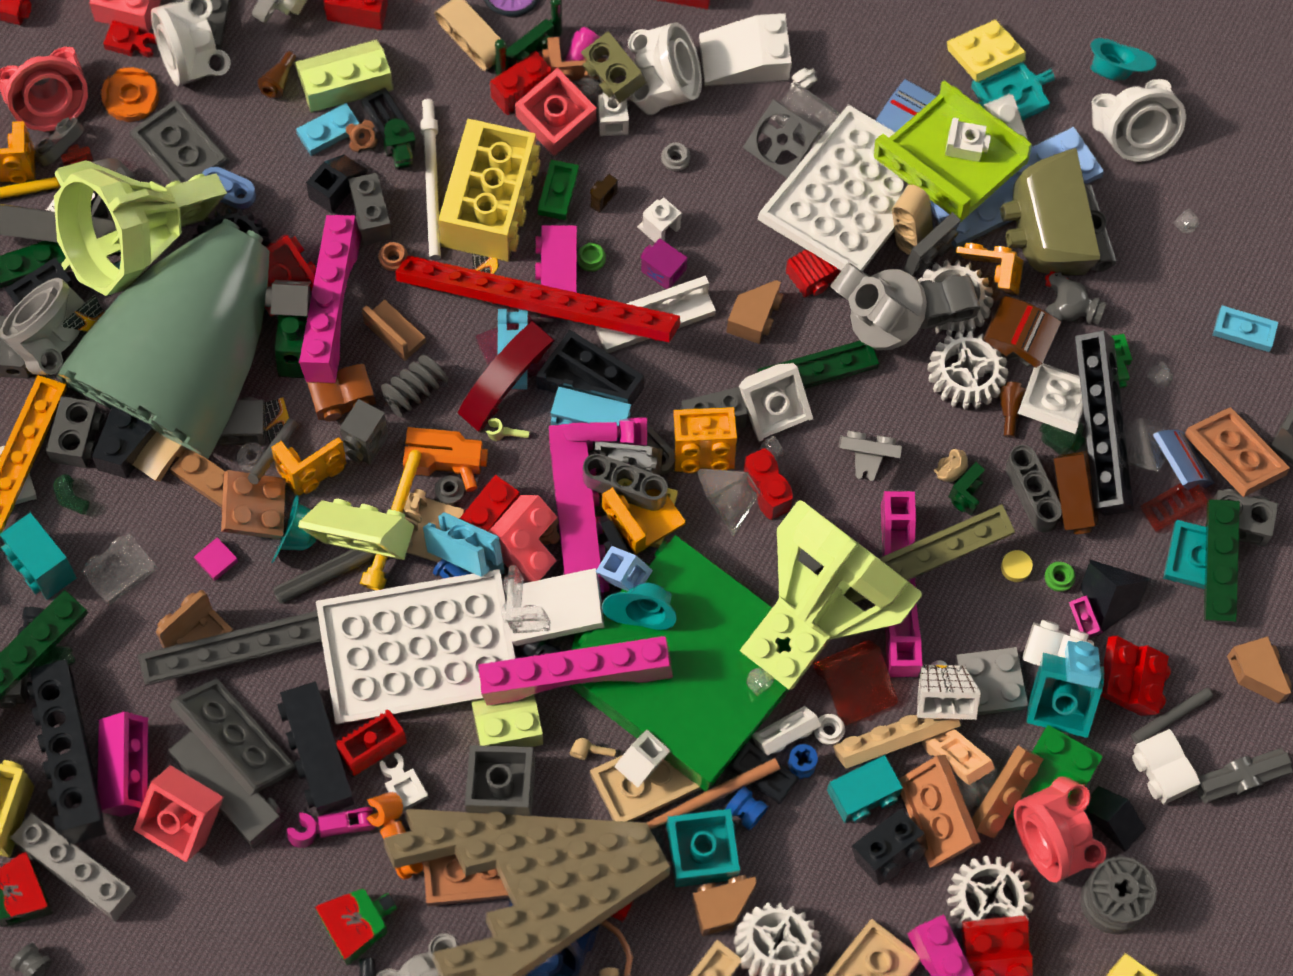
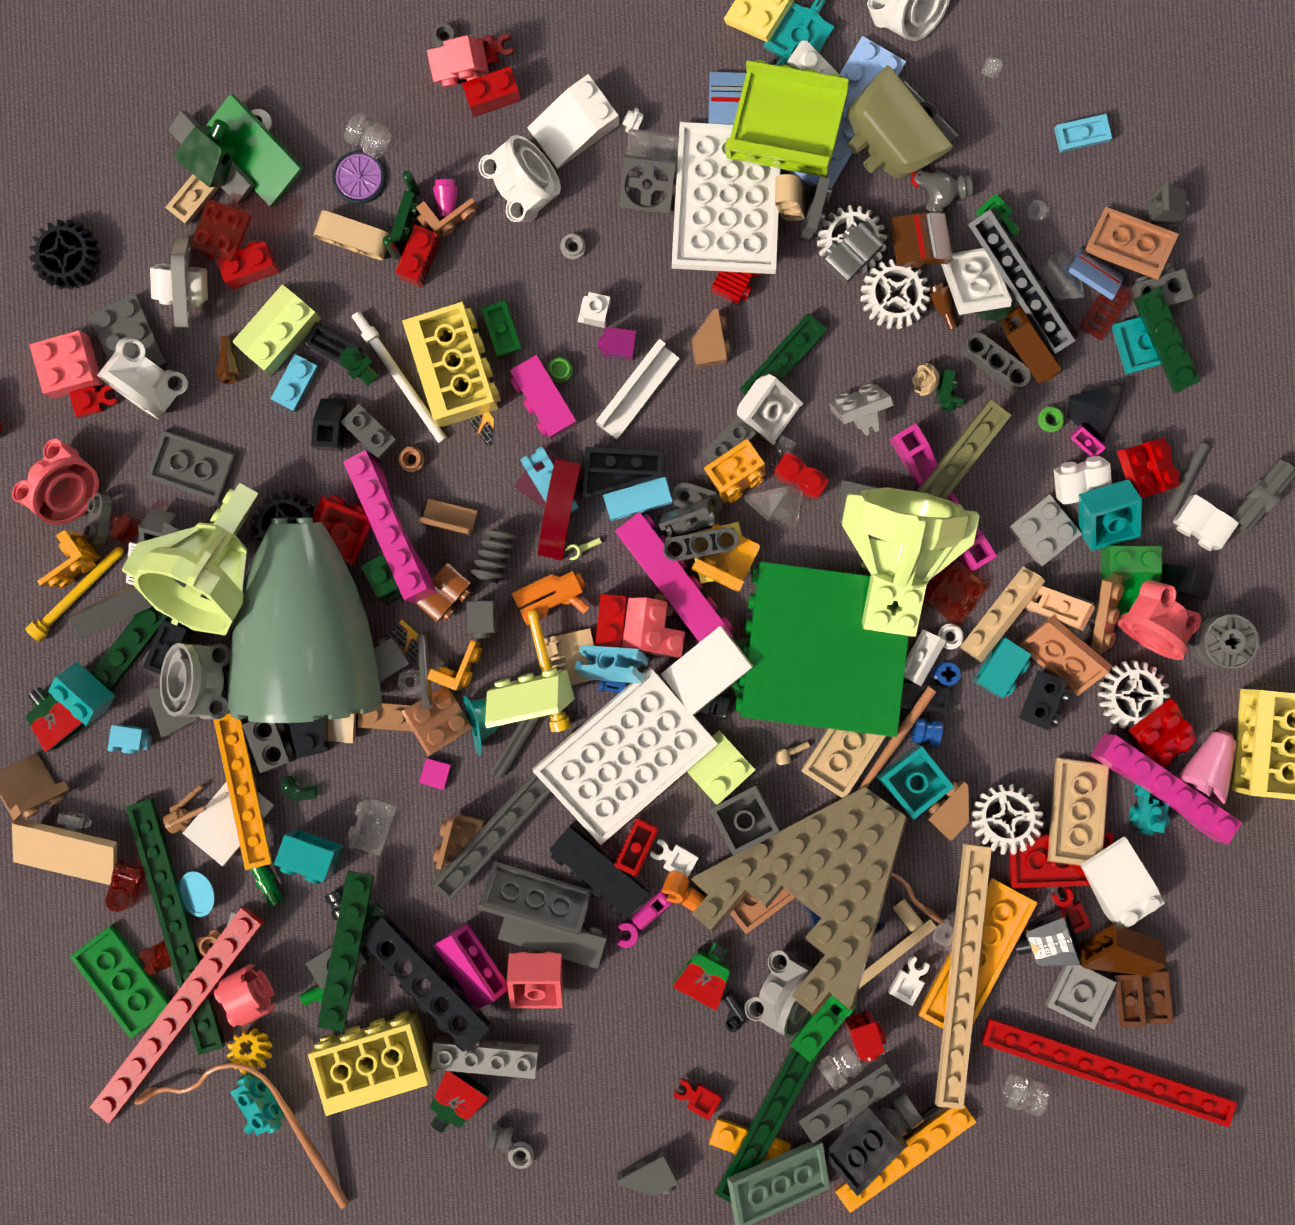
camera: 20 degrees left, 20 degrees up
(85, 316) = (220, 657): sticker -> none
(130, 94) = (124, 445): orange tile -> none
(234, 186) = (252, 477): medium blue plate -> none
(289, 297) = (361, 550): dark grey brick -> none
(367, 141) = (327, 380): nougat plate -> none
(453, 497) = (579, 619): dark grey plate -> none
(526, 619) = (696, 693): clear bracket -> none
(526, 676) = (754, 714): dark pink arch -> none
(538, 298) = (547, 435): red plate -> none
(555, 112) = (461, 266): coral brick -> none
(589, 88) = (472, 229): clear plate -> none
(603, 192) = (536, 311): dark brown plate -> none
(612, 116) = (507, 246): white brick -> none
(612, 533) = (721, 594): black plate -> none
(616, 65) = (487, 201): olive brick -> none
(623, 569) = (742, 616): light blue brick -> none
(630, 431) = (679, 500): dark pink piece -> none
(641, 606) = (774, 634): teal piece -> none
(642, 758) = (838, 747): white brick -> none
(759, 681) = (888, 641): clear hinge -> none
(883, 306) = (822, 274): light grey piece -> none
(947, 692) = (1023, 564): white torso -> none
(963, 148) = (788, 110): white brick -> none
(1007, 274) = (875, 186): light orange bracket -> none
(1016, 566) = (1015, 429): light yellow tile -> none
(1082, 663) = (1116, 490): medium azure plate -> none
(1259, 669) = (1233, 406): medium nougat slope -> none

